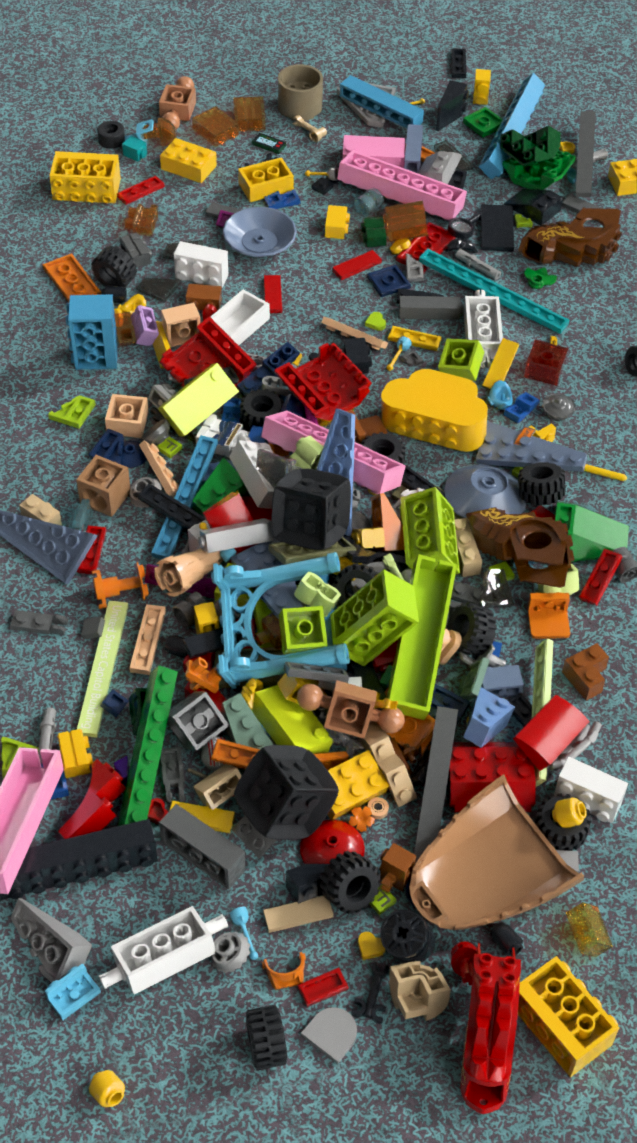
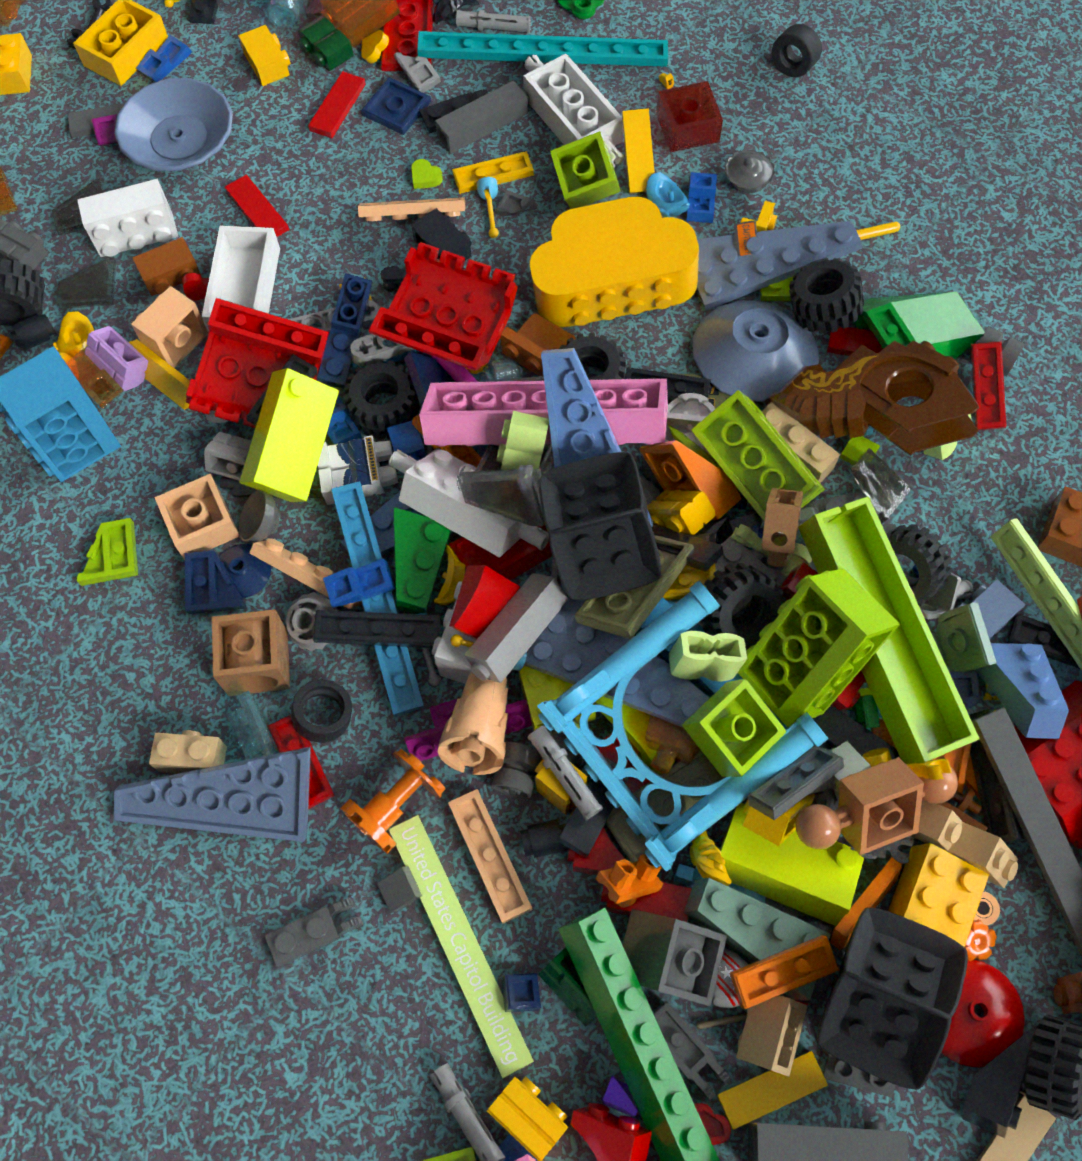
camera: 30 degrees left, 15 degrees up
(118, 520) = (327, 689): none -> black tyre
(169, 447) = (291, 527): lime tile -> none
(177, 483) = (359, 584): none -> blue slope
(207, 602) = (564, 771): none -> light grey pin
(405, 556) = (782, 516): none -> medium nougat torso
(548, 615) = (967, 481): orange bracket -> none

